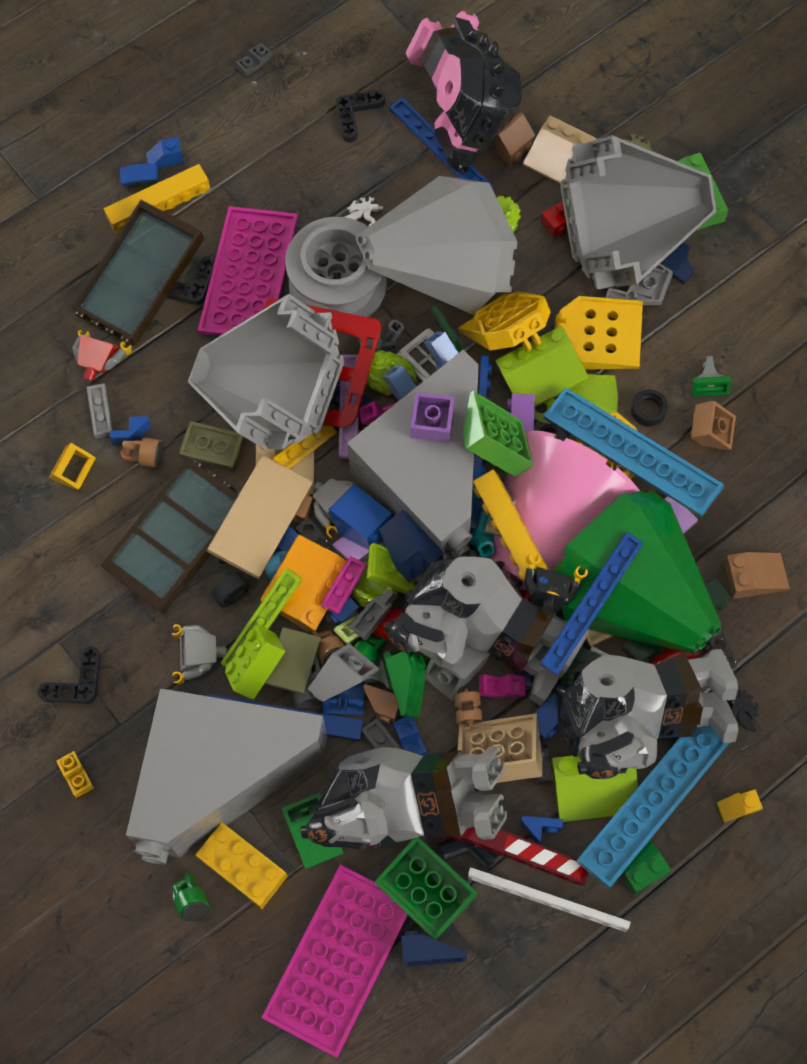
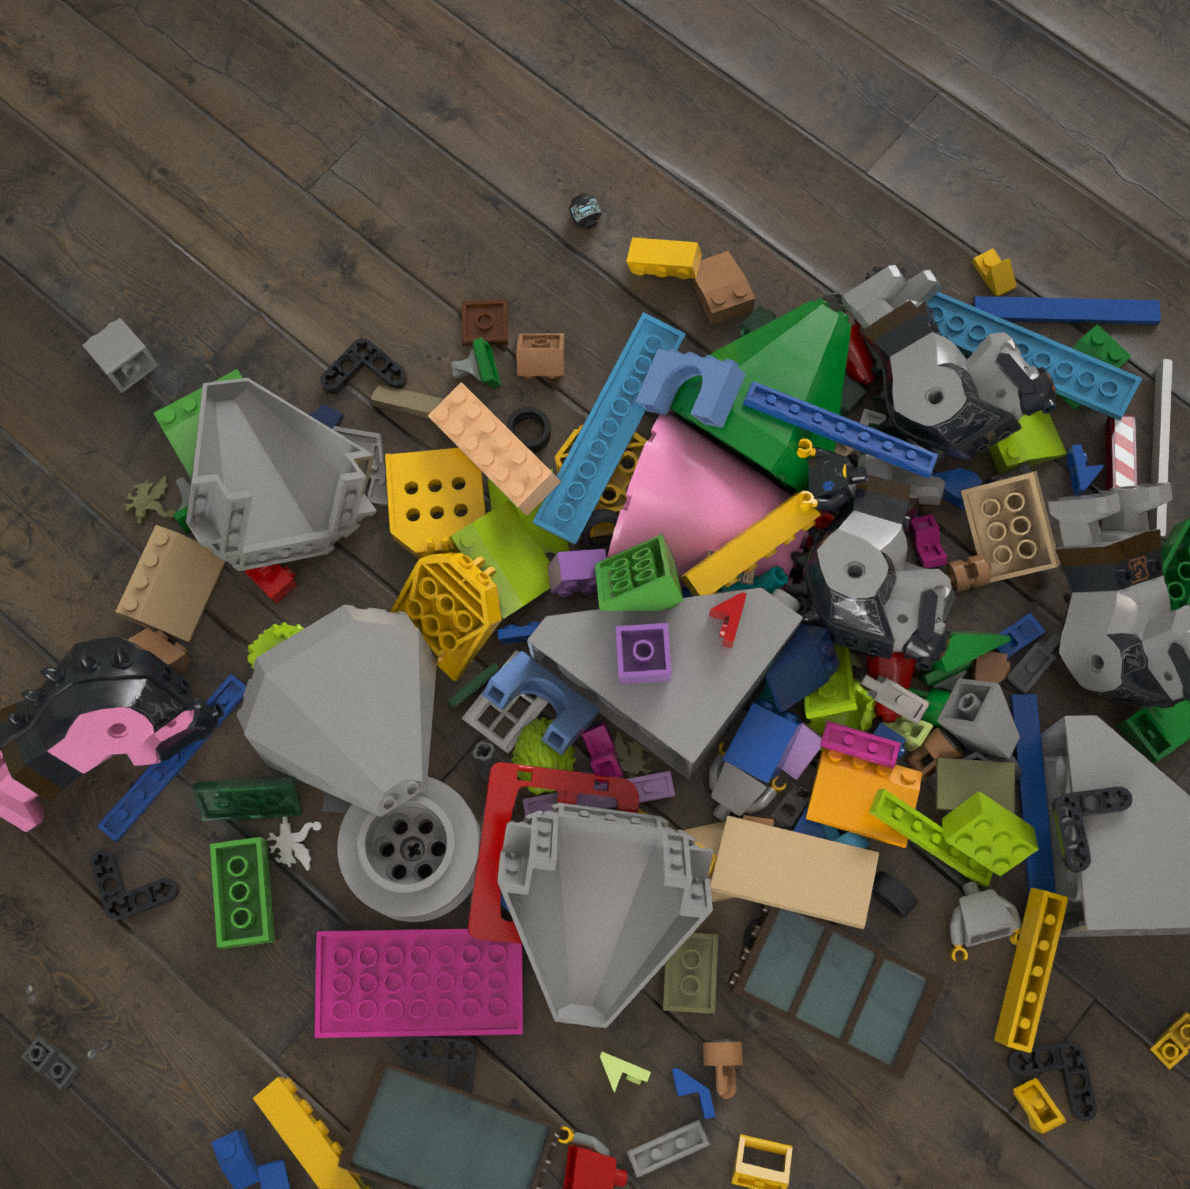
camera: 100 degrees left, 5 degrees up
(56, 656) = (1039, 1106): none -> yellow slope
(147, 669) = (1031, 970): none -> yellow brick
(159, 387) = (615, 1067): none -> yellowish green slope
(247, 704) = (1080, 810): none -> black beam
(334, 173) = (242, 893): none -> bright green brick
(398, 179) = (247, 798): none -> clear green plate
(452, 487) = (729, 611): none -> red slope
(629, 368) = (494, 449): none -> light nougat brick
(642, 511) = (673, 368): none -> medium blue arch
(684, 335) = (404, 401): none -> dark tan slope
(694, 860) = (1071, 310): none -> blue tile
(727, 299) = (360, 360): none -> black beam
(748, 393) = (485, 320): none -> reddish brown tile
(754, 138) = (120, 355): none -> light grey slope
(784, 531) = (664, 258): none -> yellow brick

